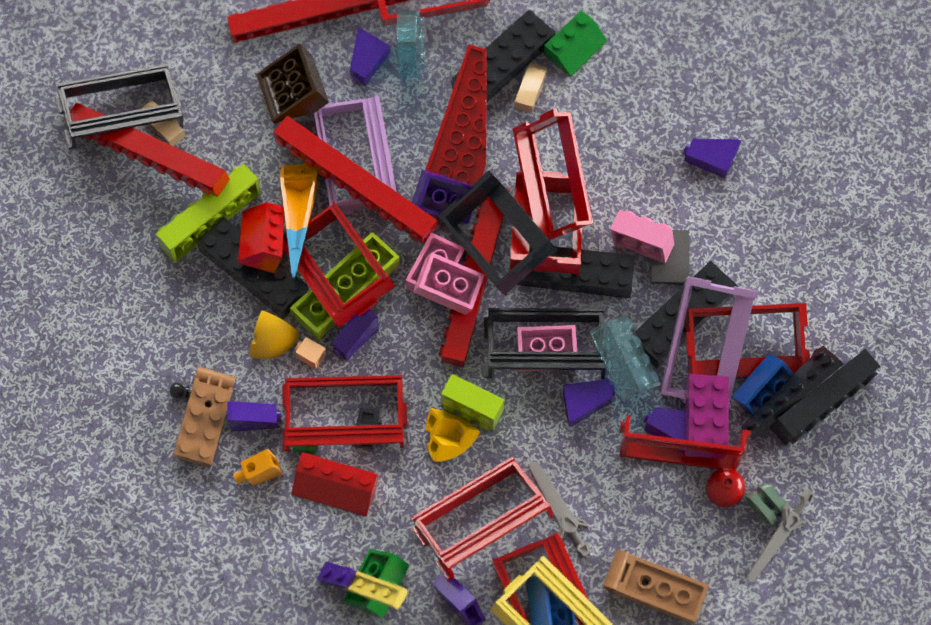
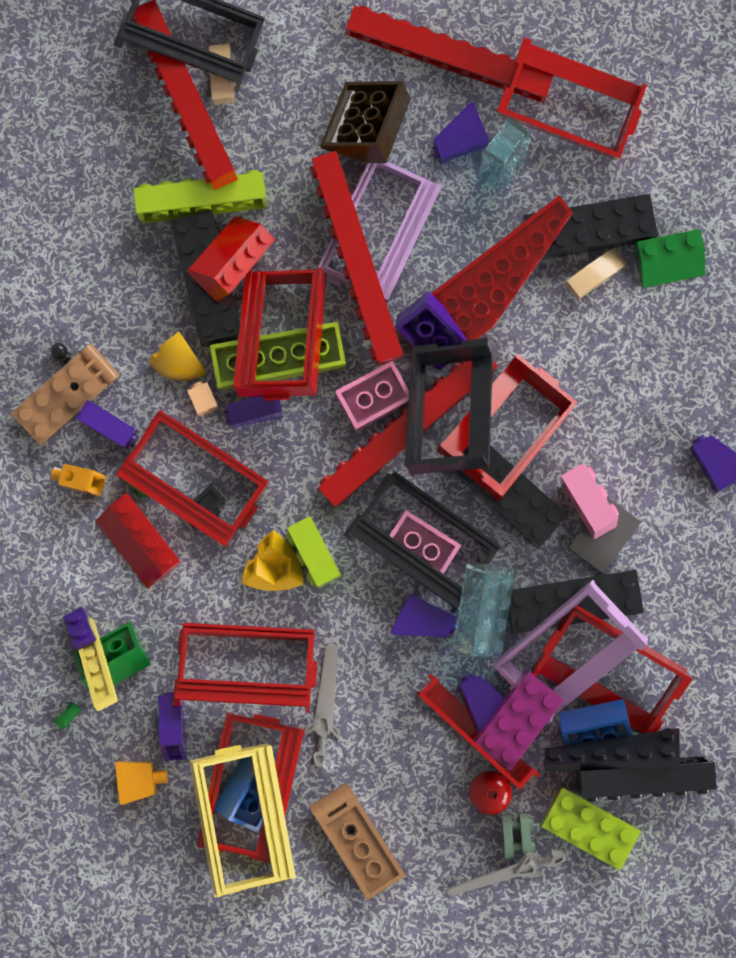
camera: 35 degrees right, 15 degrees up
(299, 190) = (297, 235): light orange plate -> none
(448, 283) = (368, 425): bright pink brick -> none
(533, 177) = (524, 379): red piece -> none
(814, 461) = (590, 828): none -> lime brick

